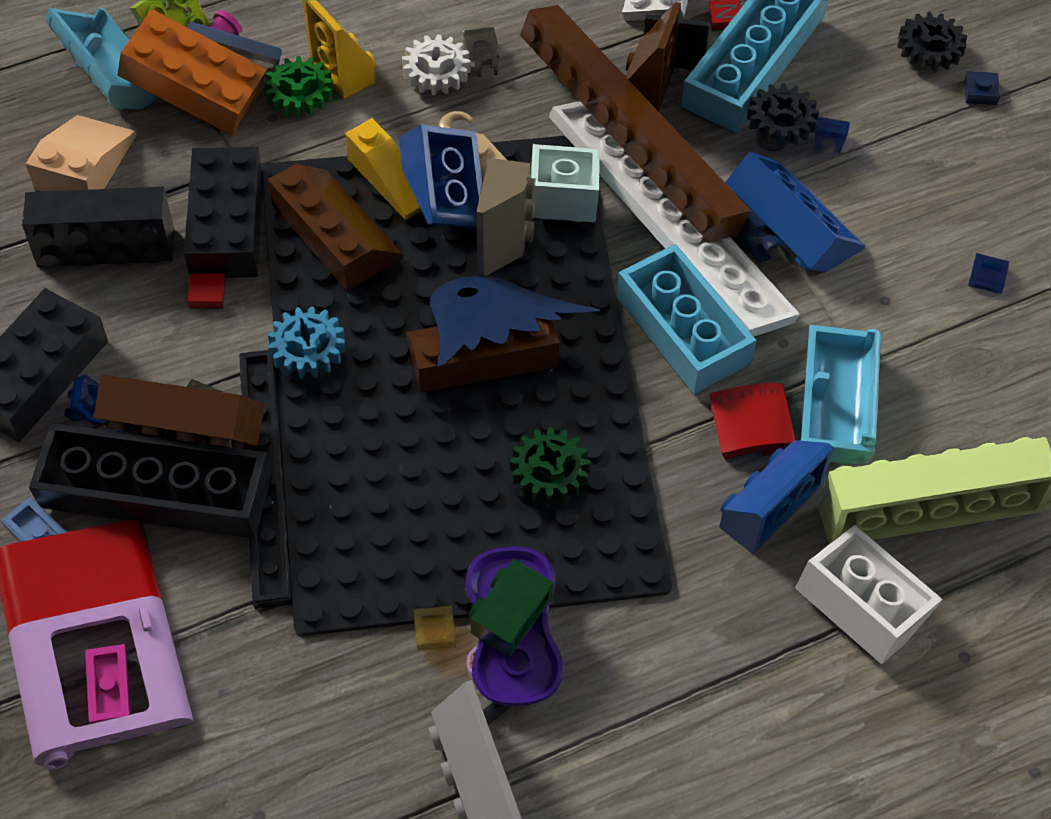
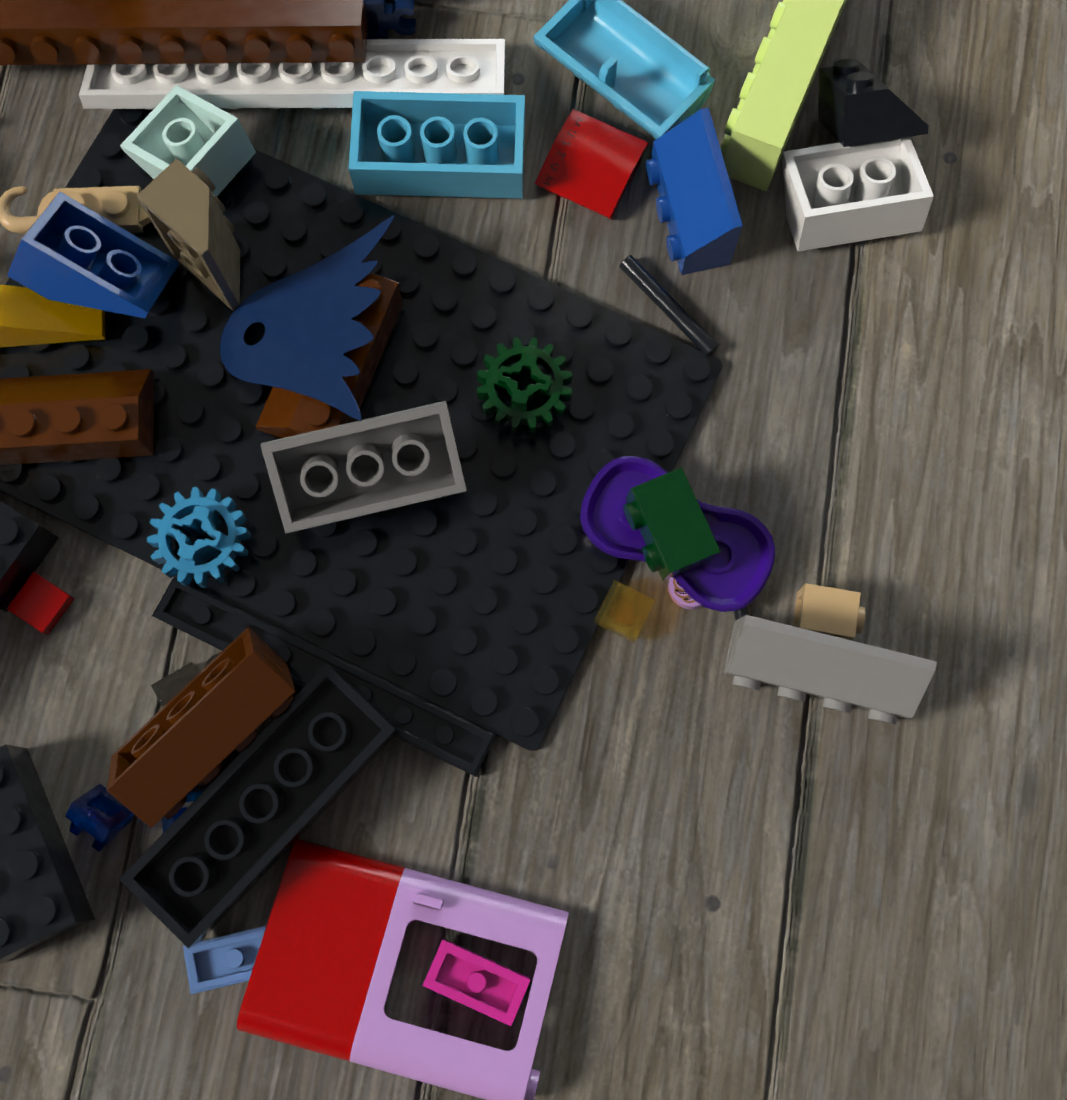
camera: 55 degrees left, 20 degrees up
(418, 398) = (364, 467): none -> light grey slope
(526, 763) = (829, 611): none -> tan brick
(687, 531) = (669, 305): none -> black bar
(940, 560) = (862, 108): none -> black slope

